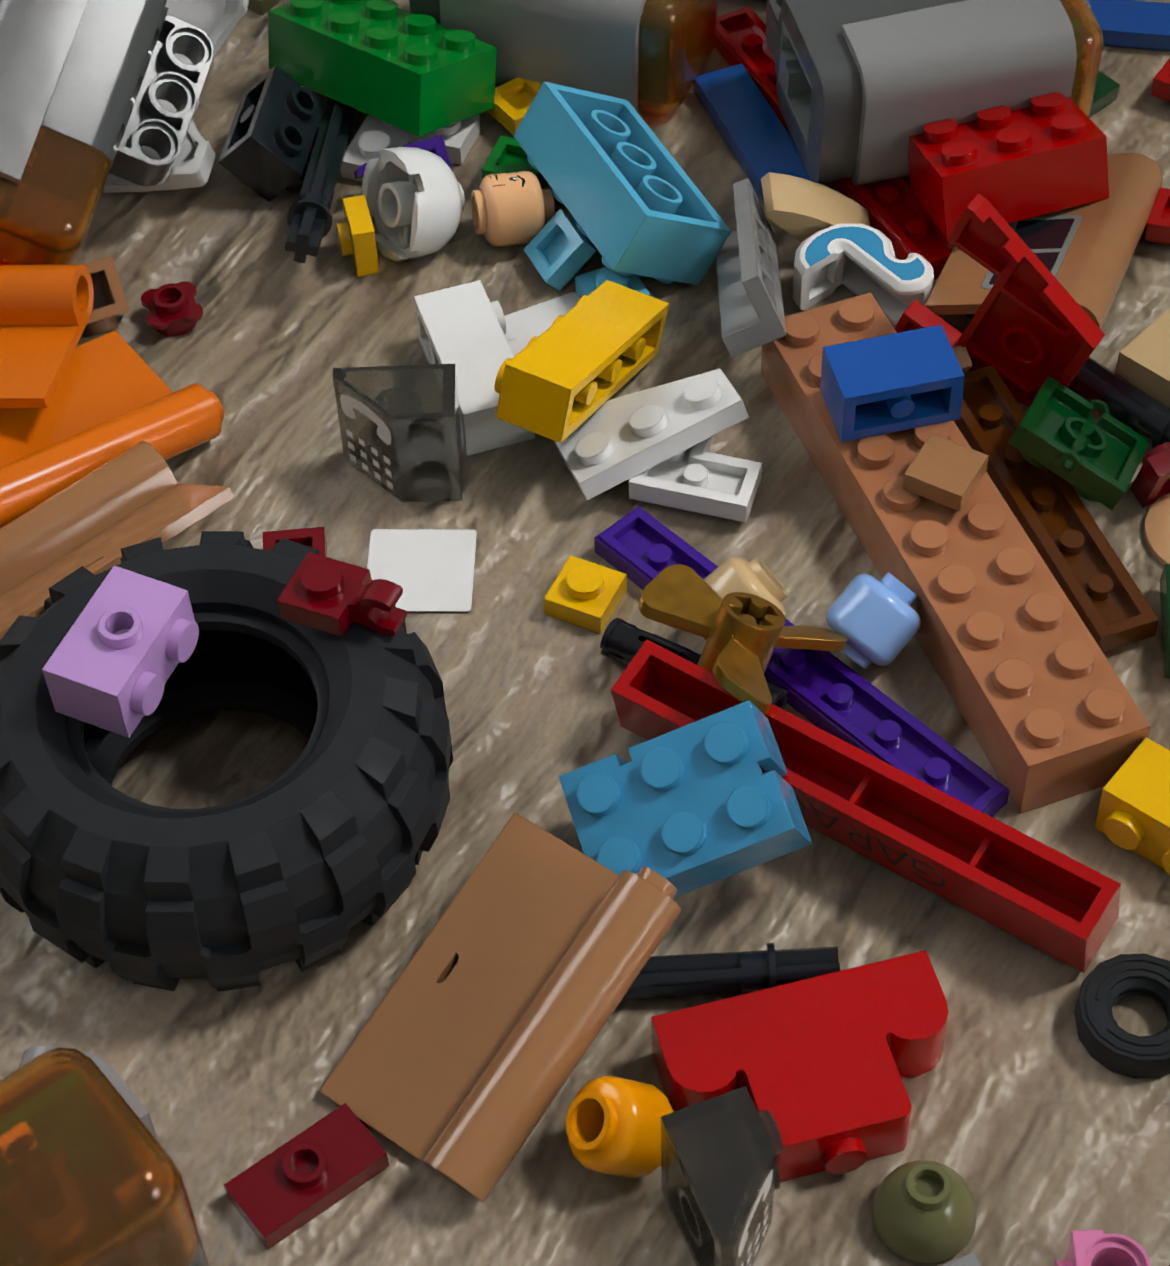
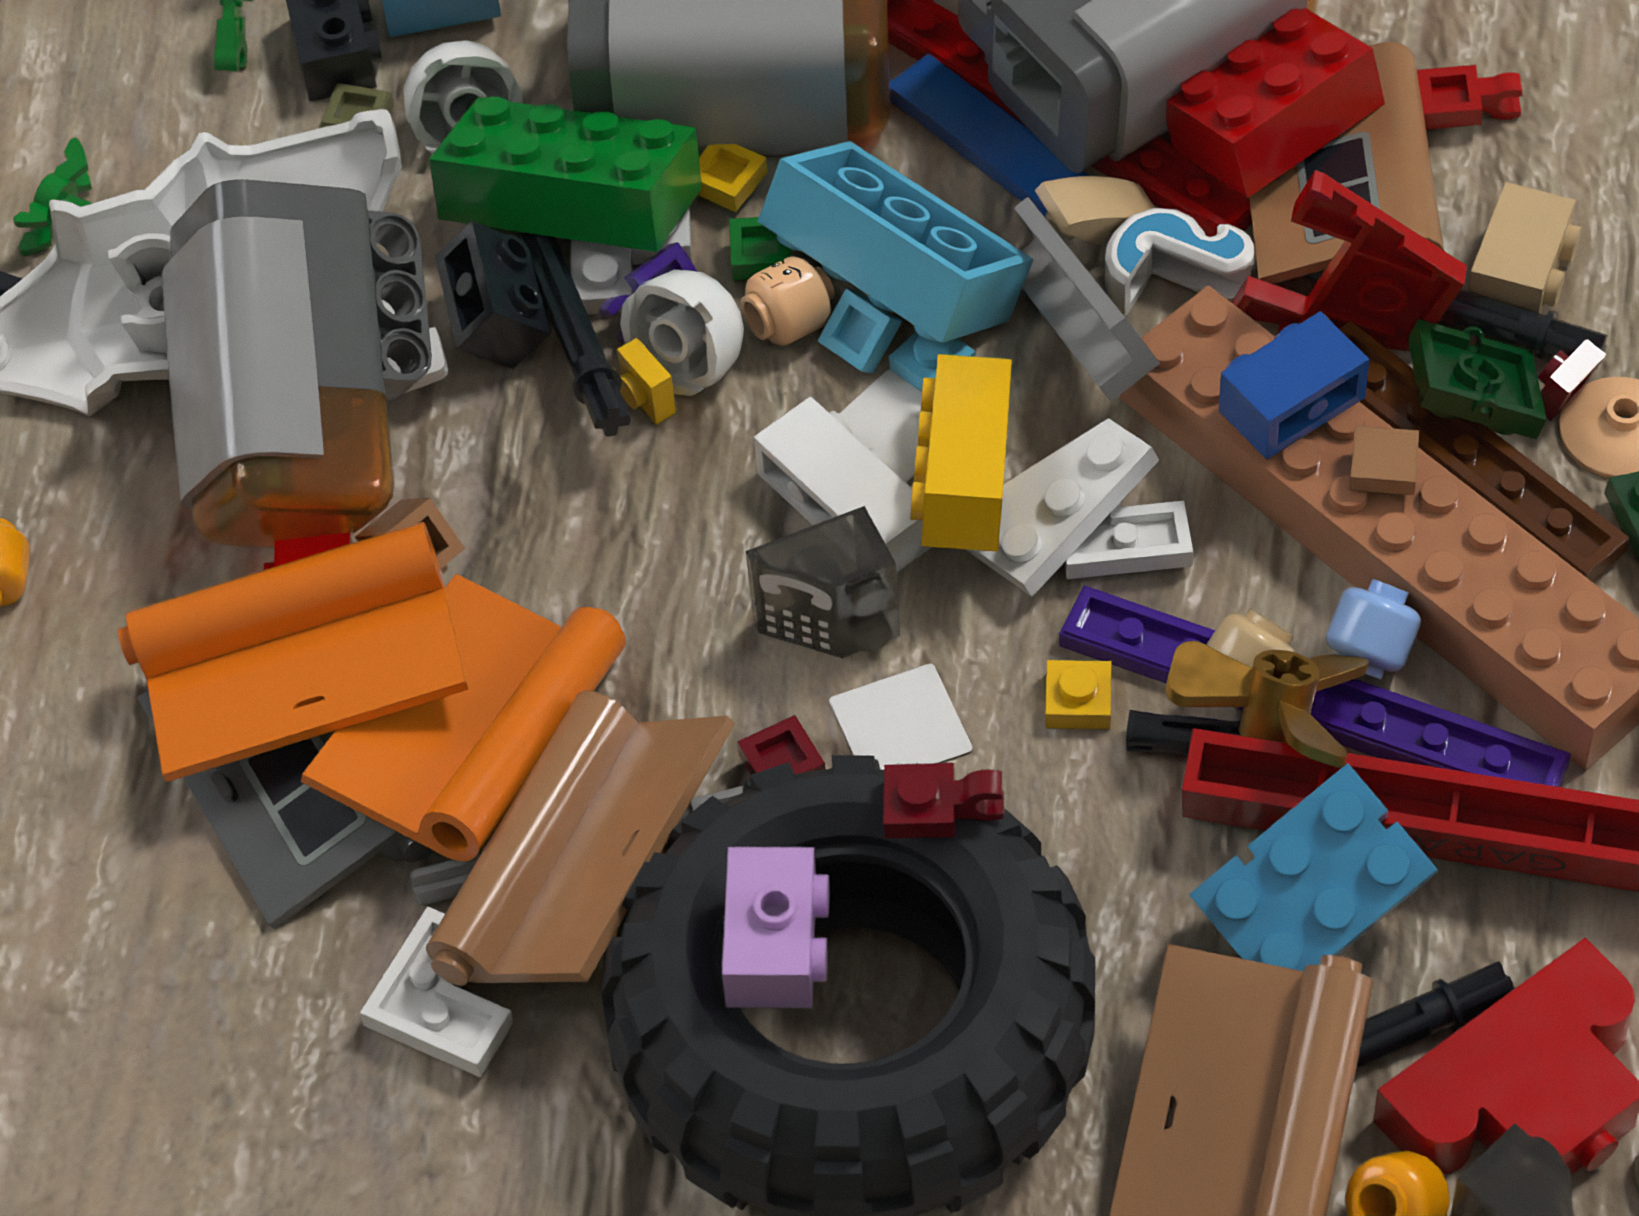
camera: 20 degrees left, 5 degrees up
(172, 308) = (491, 539): dark red plate -> none

